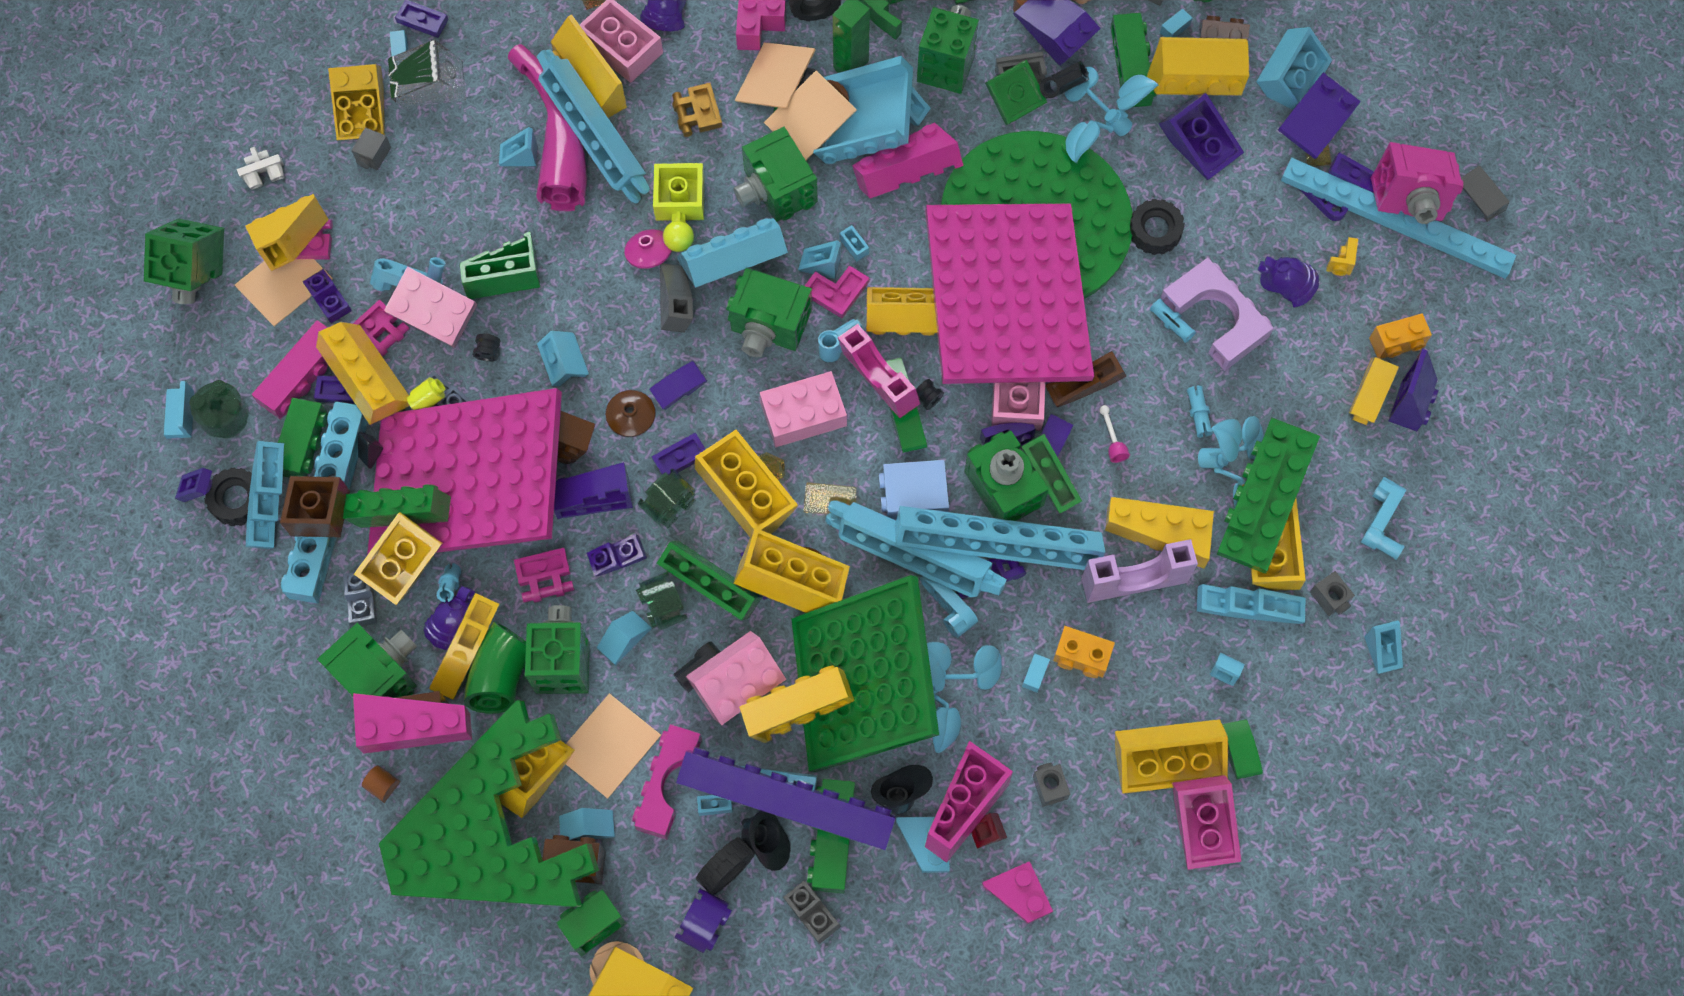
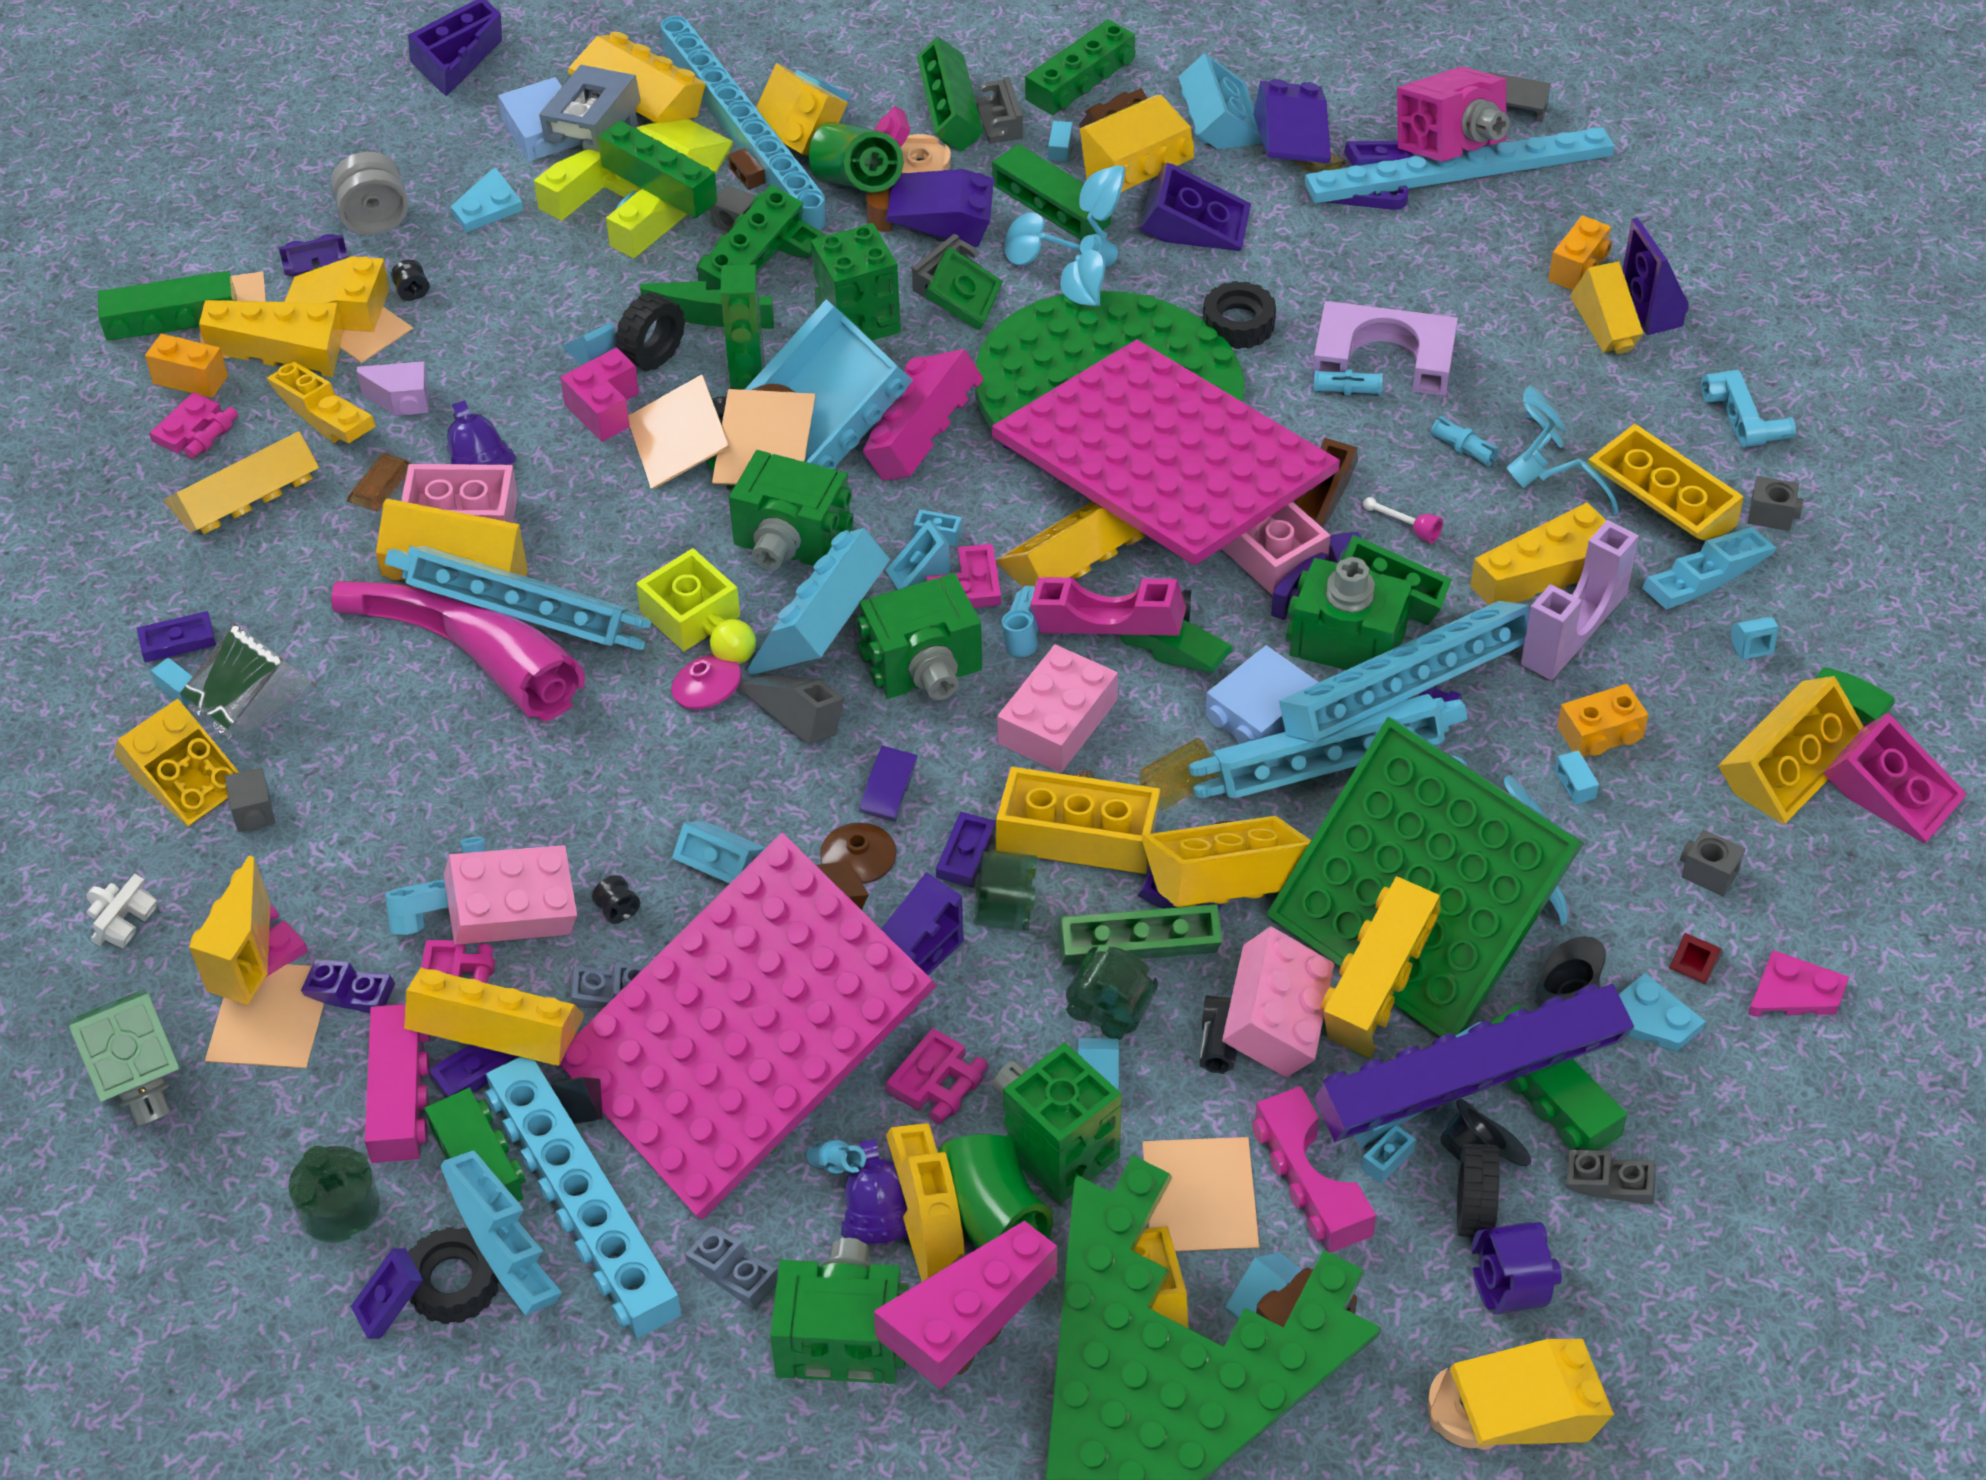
camera: 40 degrees left, 20 degrees down
(178, 412) = (275, 1239): medium azure panel -> none
(314, 506) = (590, 1182): reddish brown brick -> none
(380, 783) = (975, 1441): dark orange brick -> none
(381, 507) = (695, 1111): green brick -> none
(398, 558) = (753, 1164): yellow slope -> none
(426, 394) = (597, 986): neon yellow brick -> none
(502, 270) = (559, 803): green wedge -> none
(519, 149) = (445, 683): medium azure slope -> none
(591, 922) = (1393, 1369): green brick -> none
(617, 555) = (1000, 997): dark purple slope -> none
(704, 106) = (626, 511): pearl gold plate -> none
(968, 798) = (1651, 930): dark pink wedge -> none
(1065, 80) = (1007, 240): black piece -> none
(1267, 495) = (1625, 449): green plate -> none
(1290, 278) = (1419, 273): dark purple helmet -> none
(1346, 259) = (1453, 225): yellow bracket -> none
(1385, 646) = (1872, 511): medium azure slope -> none

